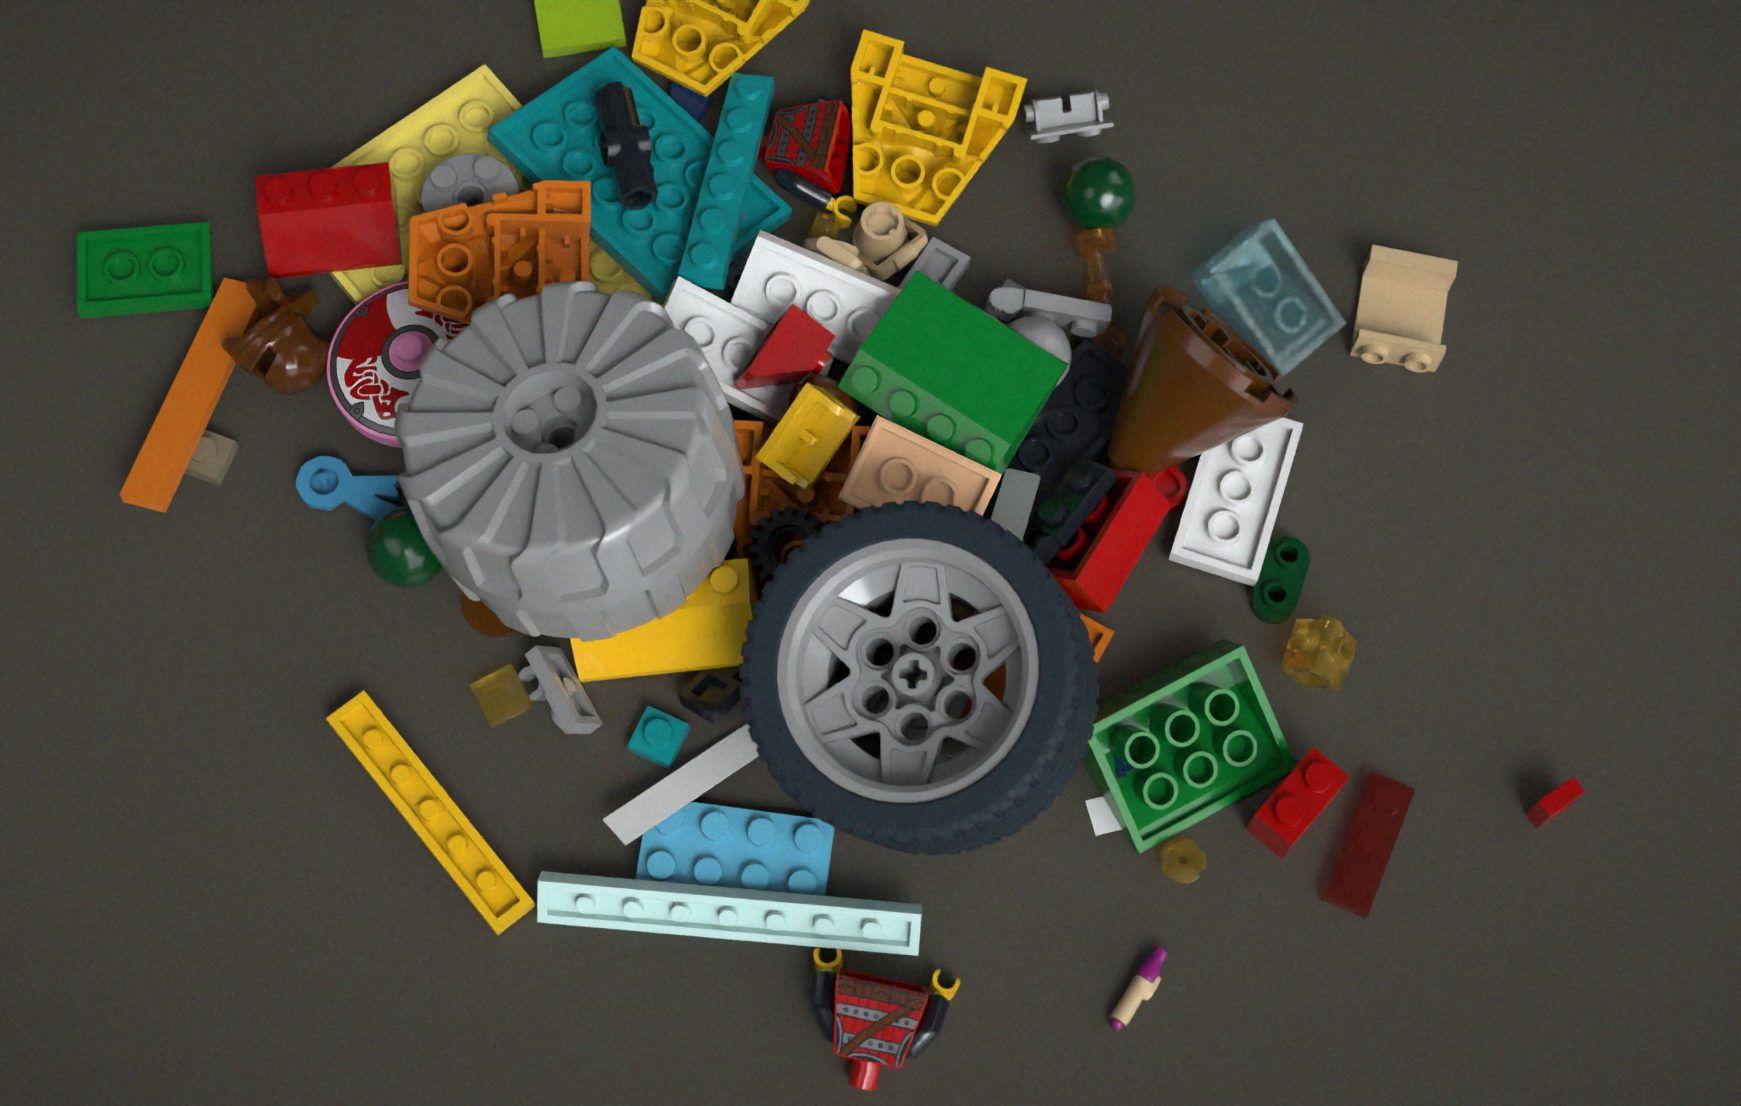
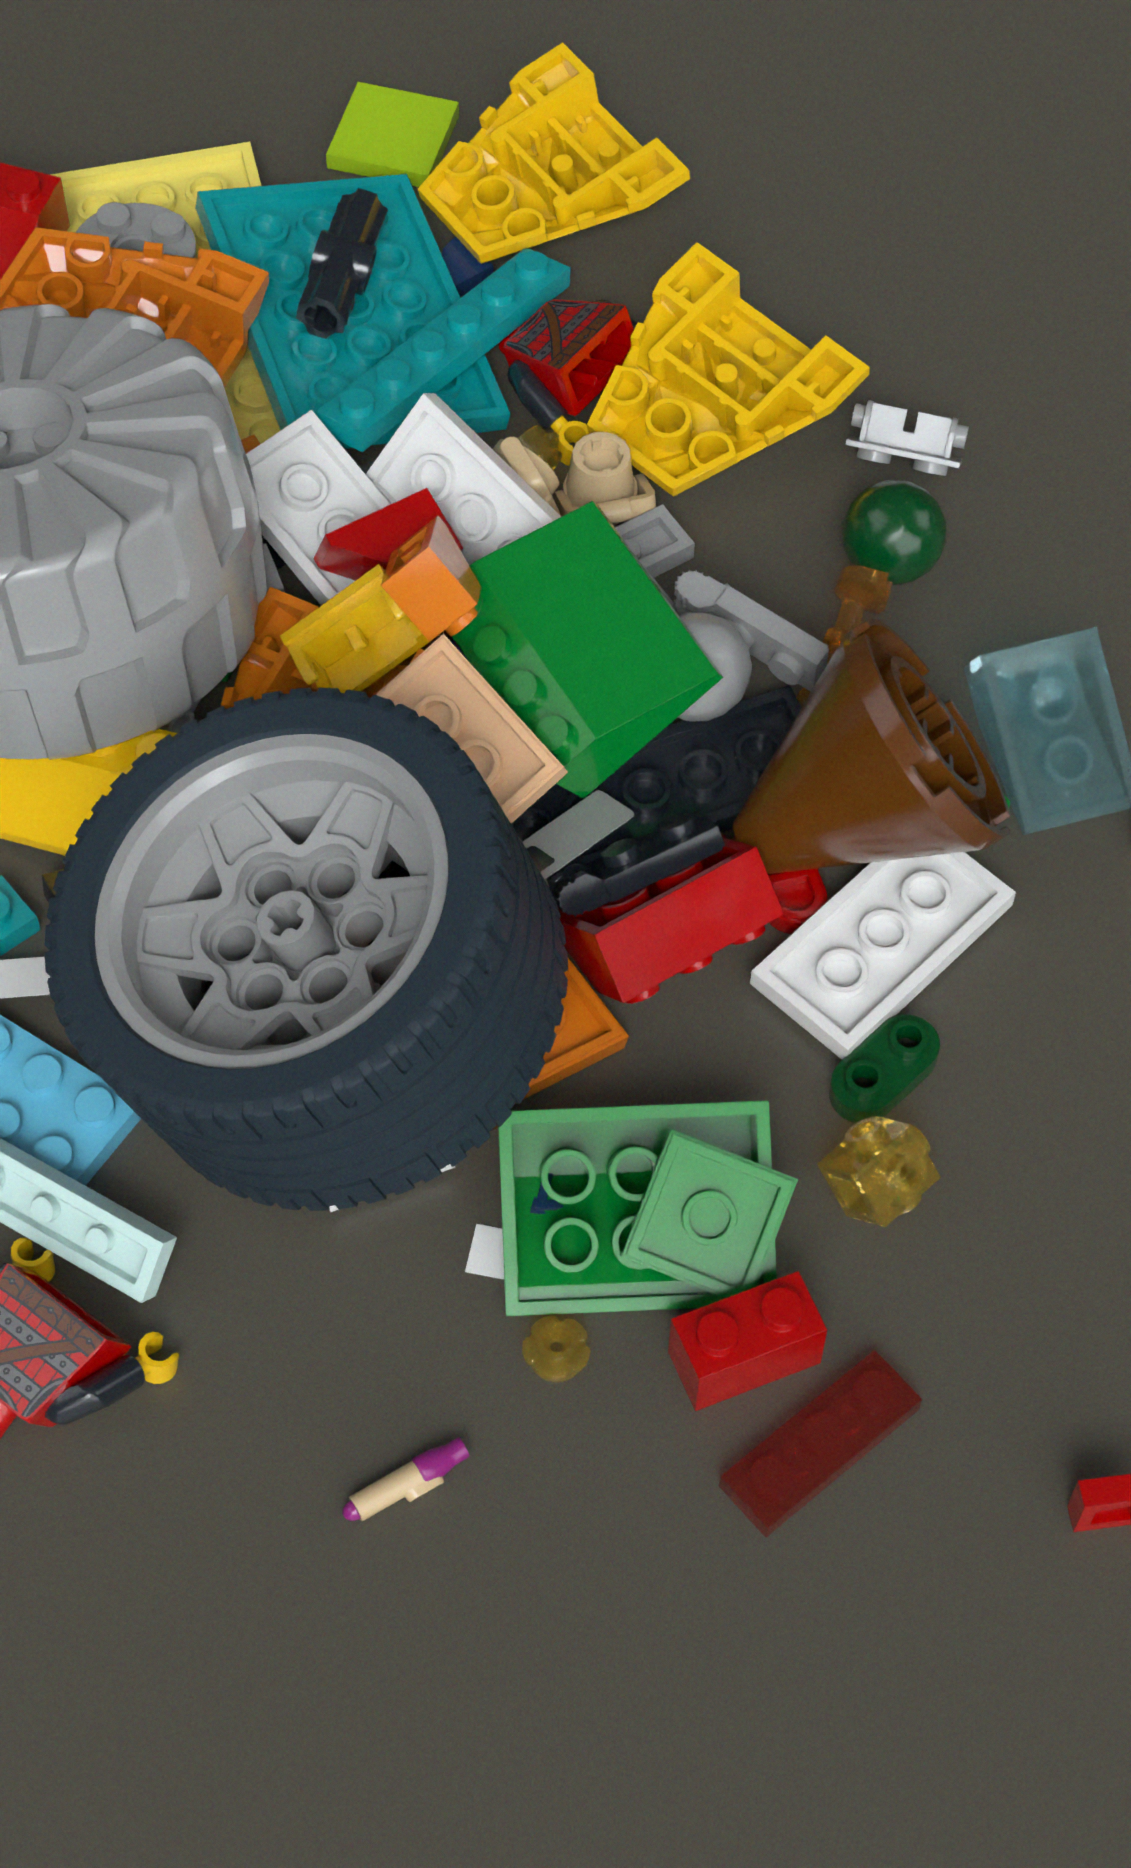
camera: 30 degrees right, 10 degrees down
(844, 376) = (432, 581): none -> orange slope
(1238, 735) = (708, 1216): none -> tile

